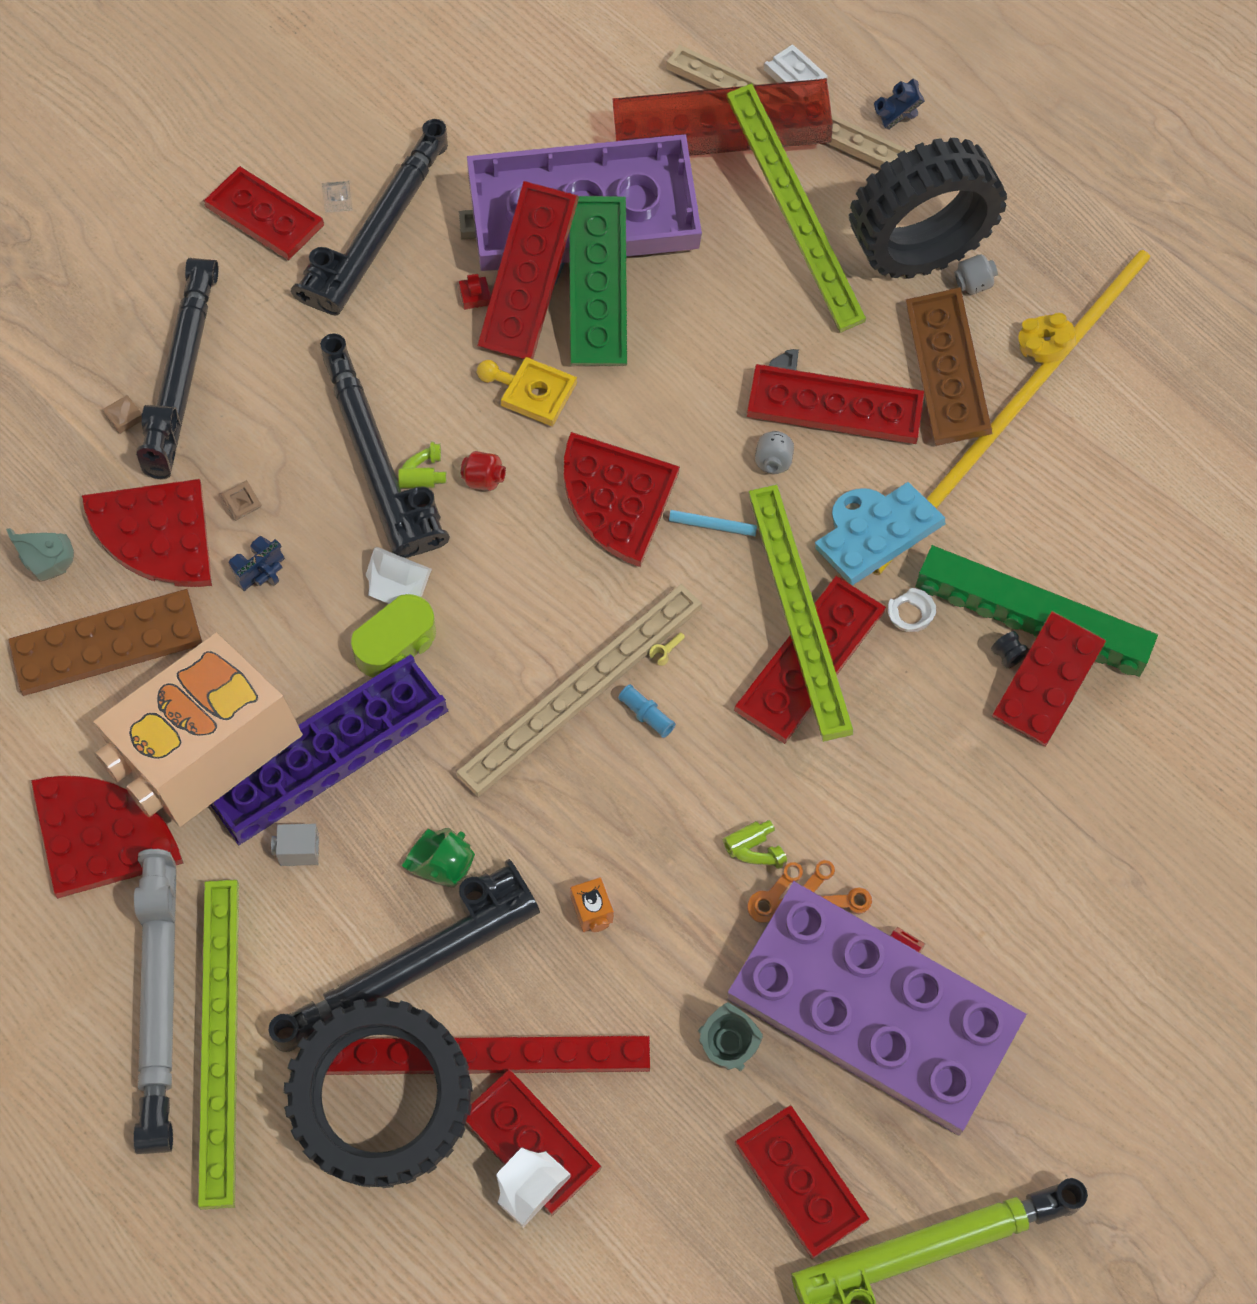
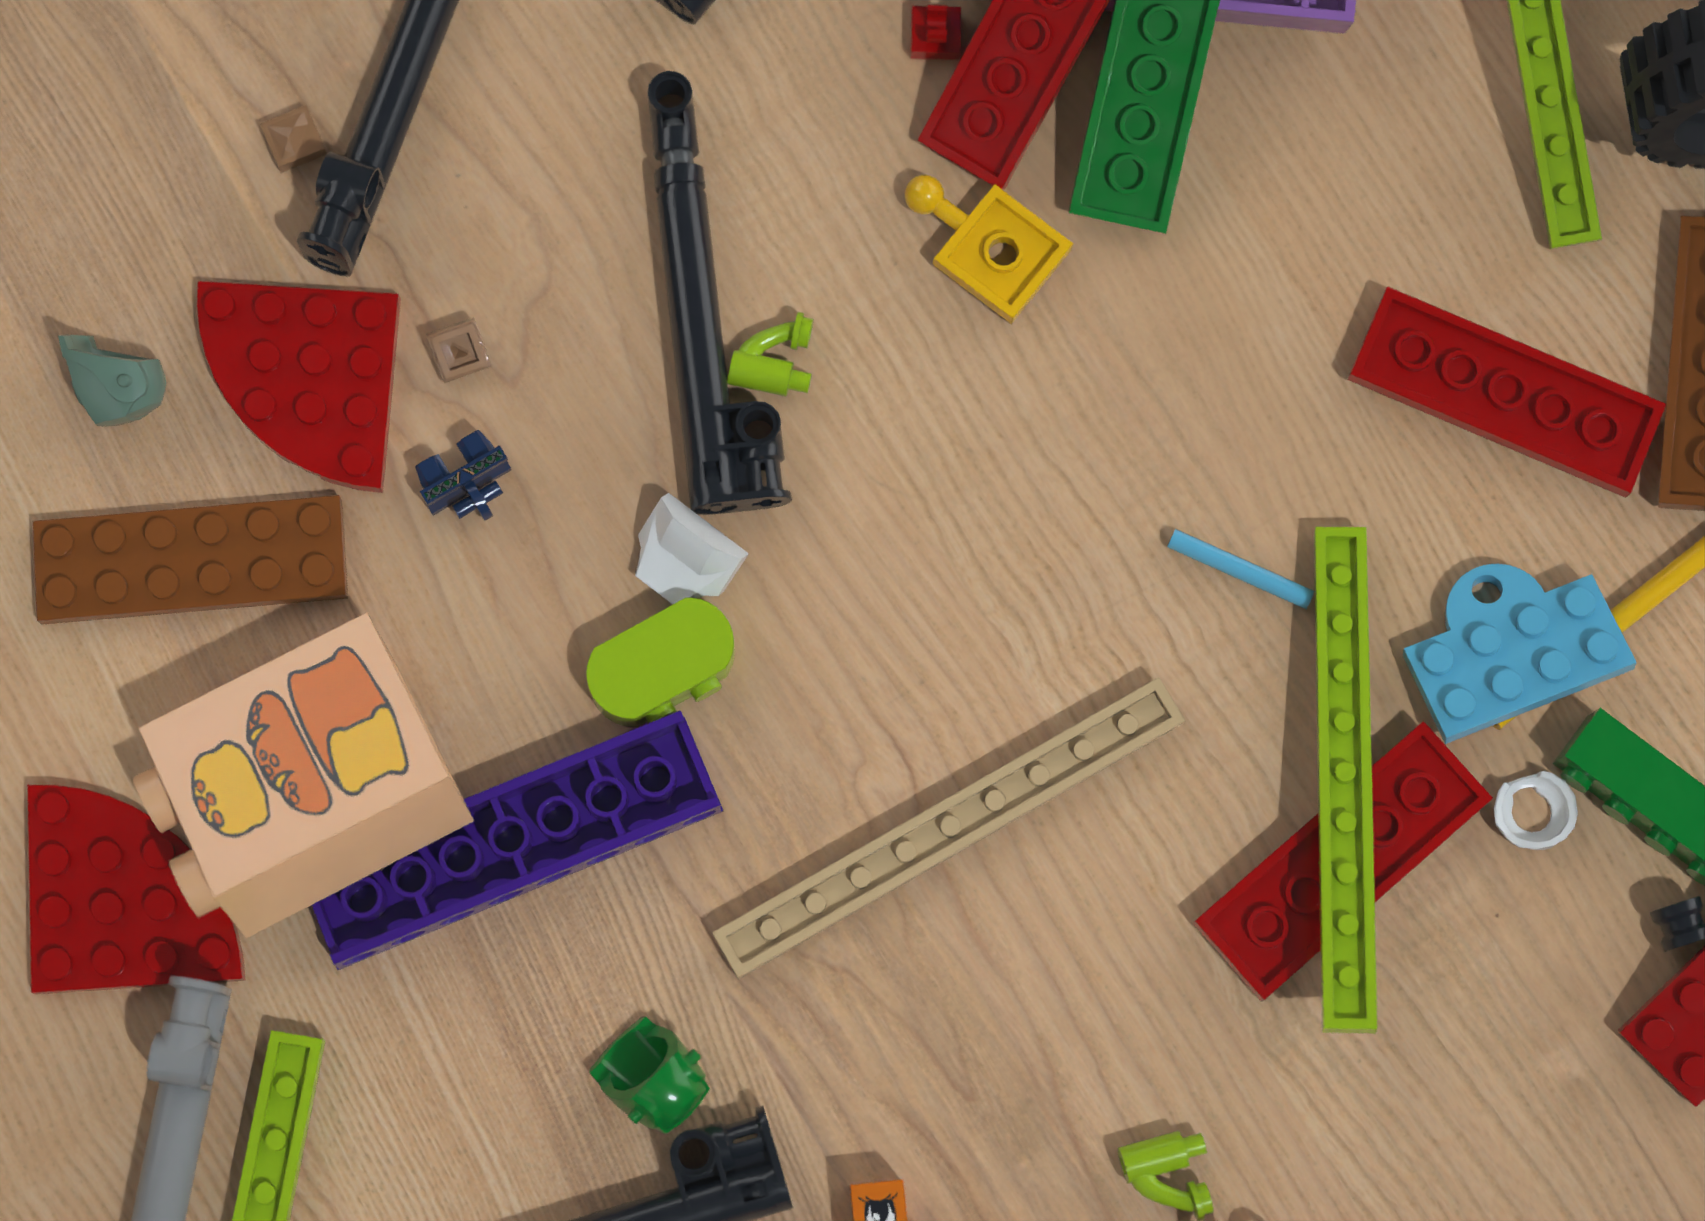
camera: 10 degrees right, 15 degrees up
(296, 844) = (428, 998): light grey brick -> none
(482, 471) = (873, 387): red head -> none
(617, 494) = (1090, 481): red plate -> none
(647, 711) = (1047, 892): dark azure pin -> none
(666, 649) = (1110, 782): light yellow hand -> none
(774, 452) = (1377, 464): light grey head -> none
(786, 360) = (1441, 288): dark grey tile -> none

